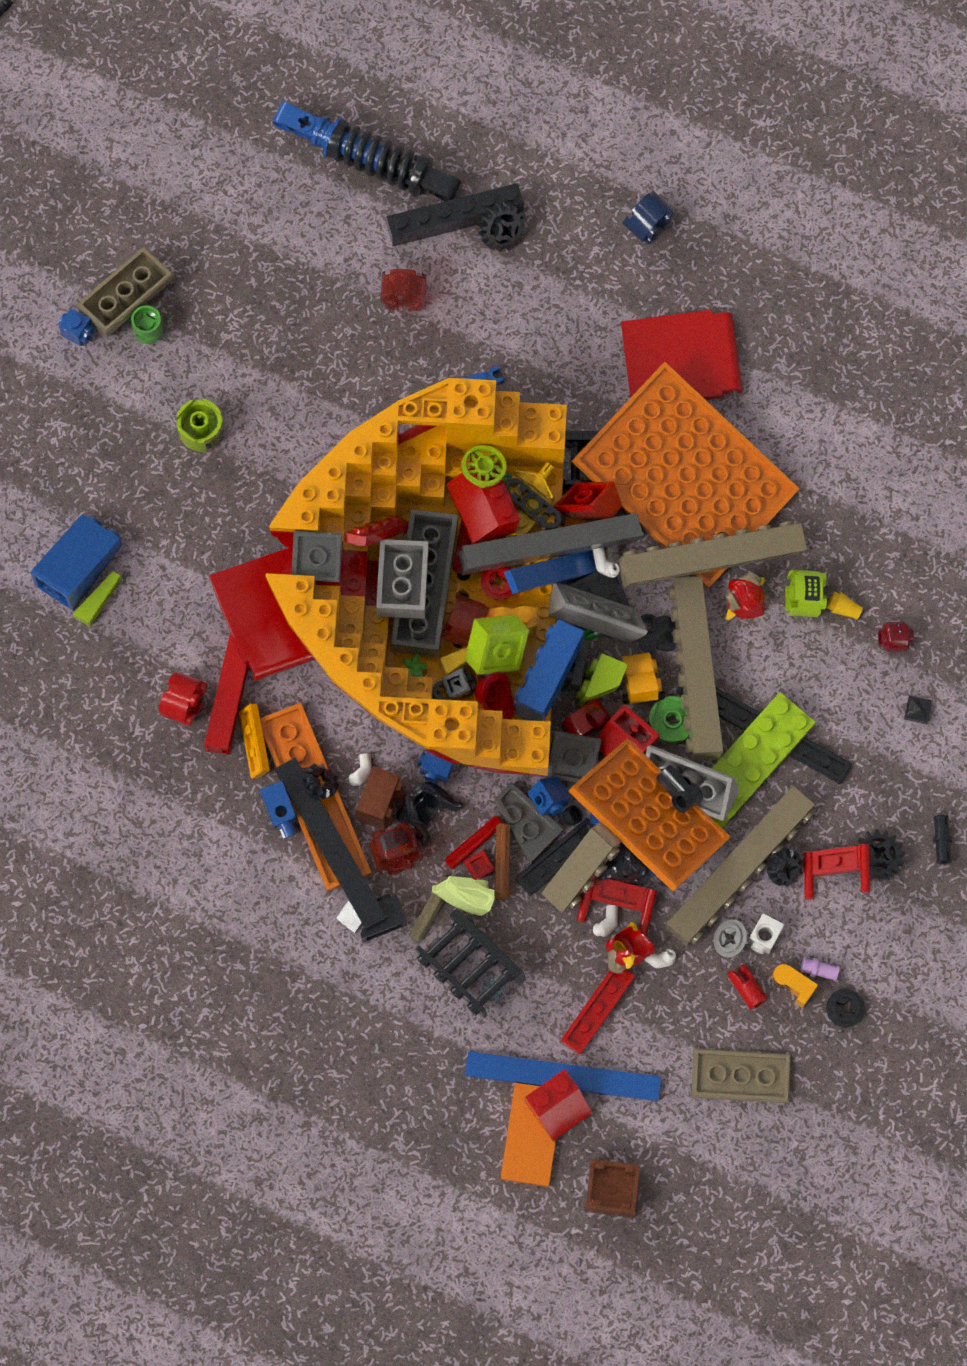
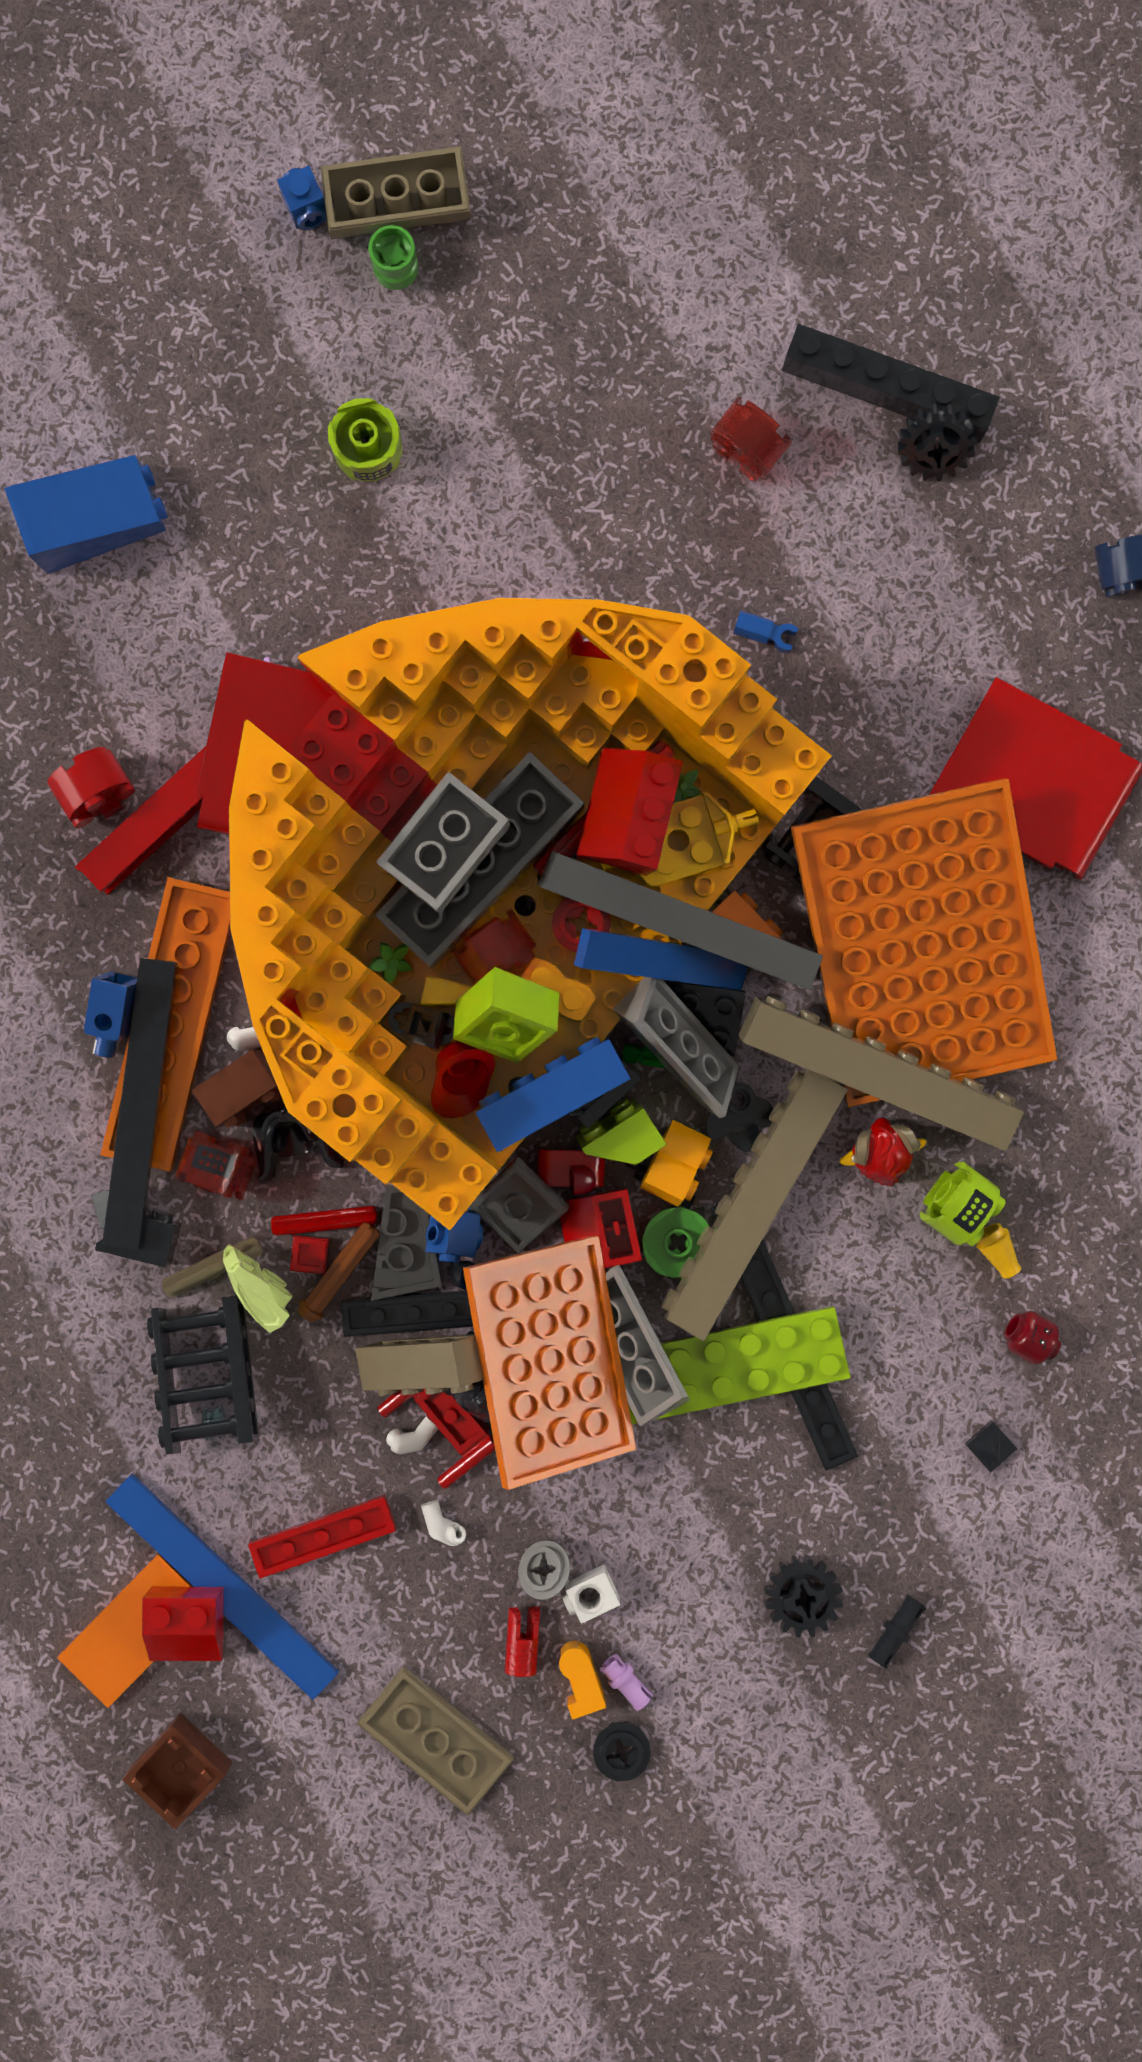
camera: 40 degrees right, 15 degrees up
(95, 602) = (79, 582): lime piece -> none
(254, 741) = (145, 901): light orange tile -> none
(313, 785) = (167, 1016): black gear -> none
(317, 555) = (337, 741): dark grey tile -> none
(368, 154) = (836, 220): black piece -> none
(376, 531) = (450, 756): red plate -> none
(483, 466) = (660, 764): lime wheel -> none
(549, 511) = (708, 878): black beam -> none
(590, 501) = (776, 896): red slope -> none
(604, 566) = (735, 991): white arm -> none
(628, 948) = (408, 1497): red hair -> none
(683, 794) = (613, 1362): black piece -> none
(740, 866) = (624, 1488): dark tan brick -> none
(778, 862) = (670, 1521): black gear -> none
(837, 862) = (746, 1572): red plate -> none

